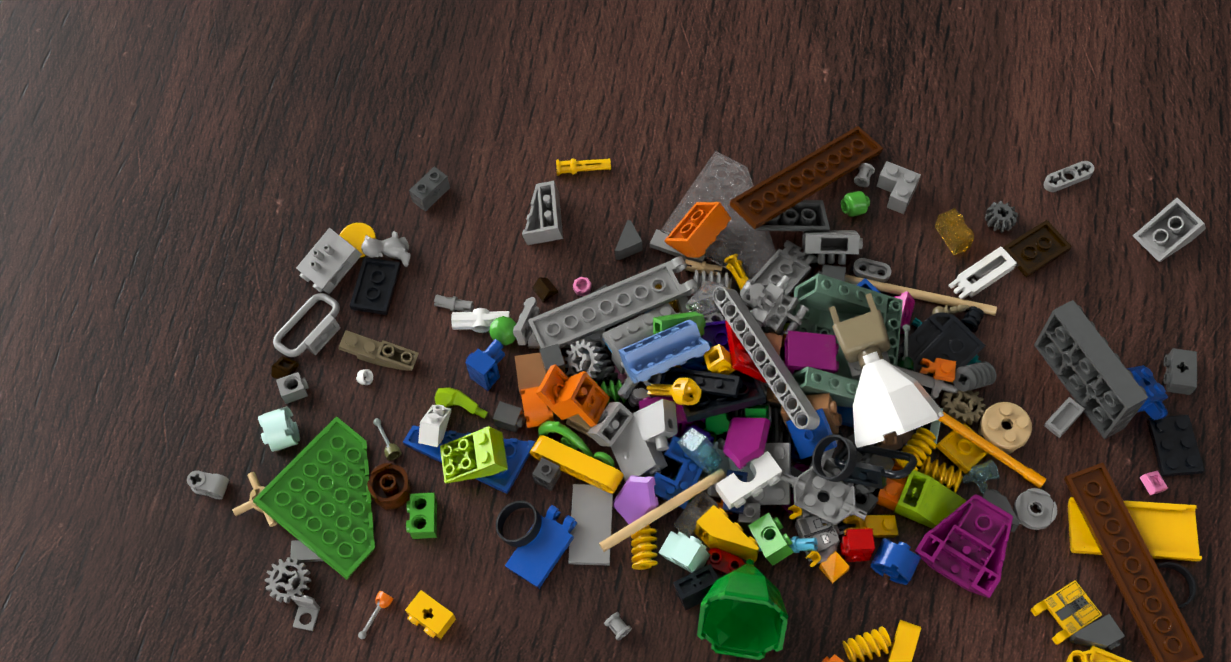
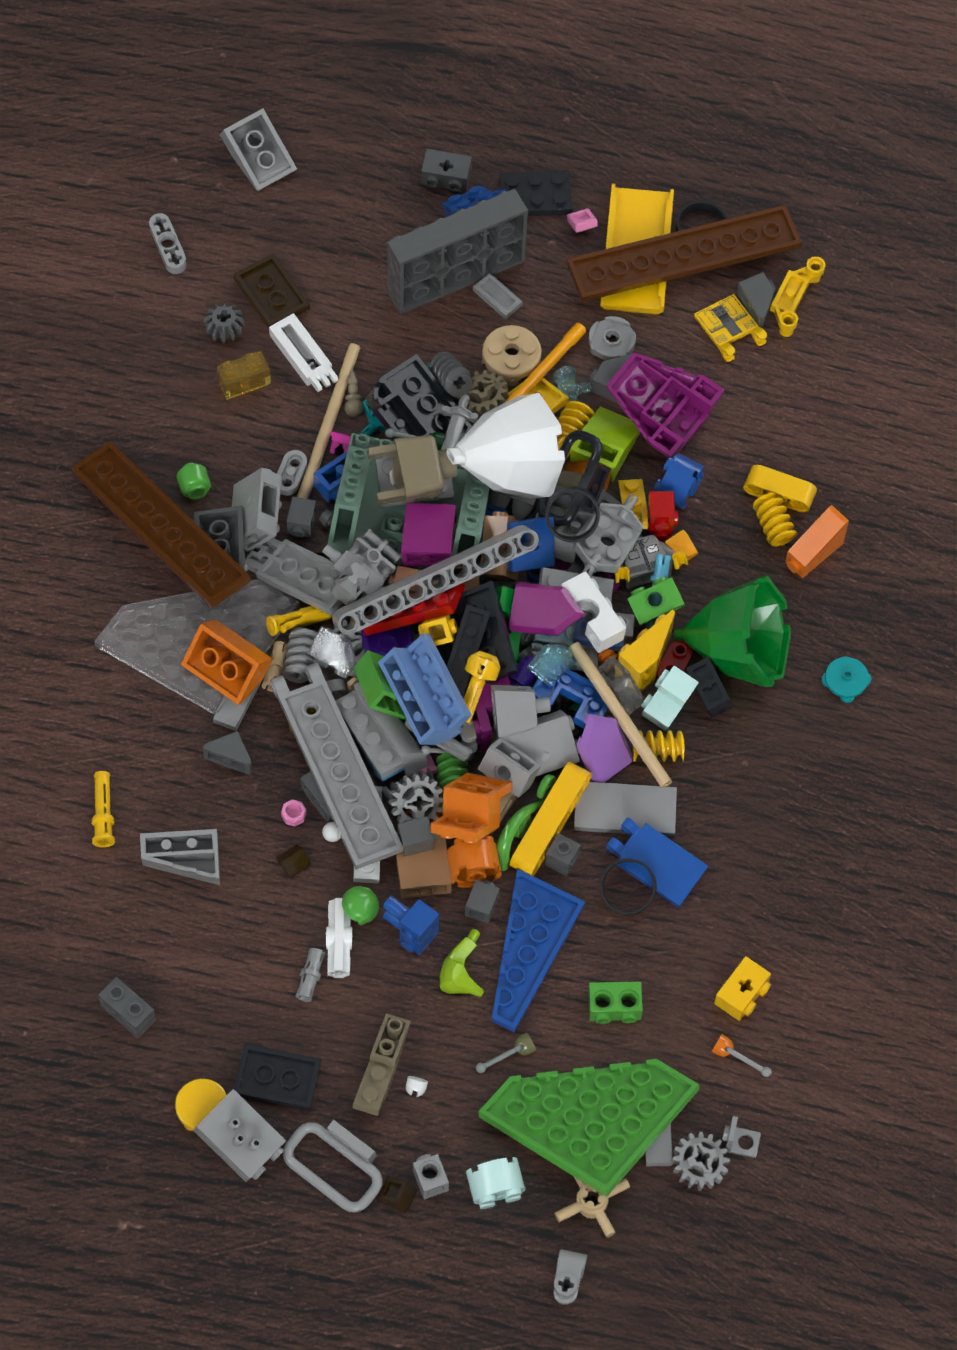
camera: 95 degrees left, 0 degrees up
(391, 247) = (219, 1052): light grey animal -> none
(394, 496) = (582, 1027): reddish brown brick -> none
(434, 425) = (498, 982): white slope -> none
(474, 456) = (541, 937): lime slope -> none
(522, 329) = (346, 875): light grey hinge -> none
(618, 626) = (753, 779): light grey bush -> none
(864, 175) = (149, 468): light grey bush -> none
(900, 183) = (171, 424): light grey brick -> none
(941, 369) = (443, 404): orange plate -> none
(973, 318) = (367, 371): black bush -> none

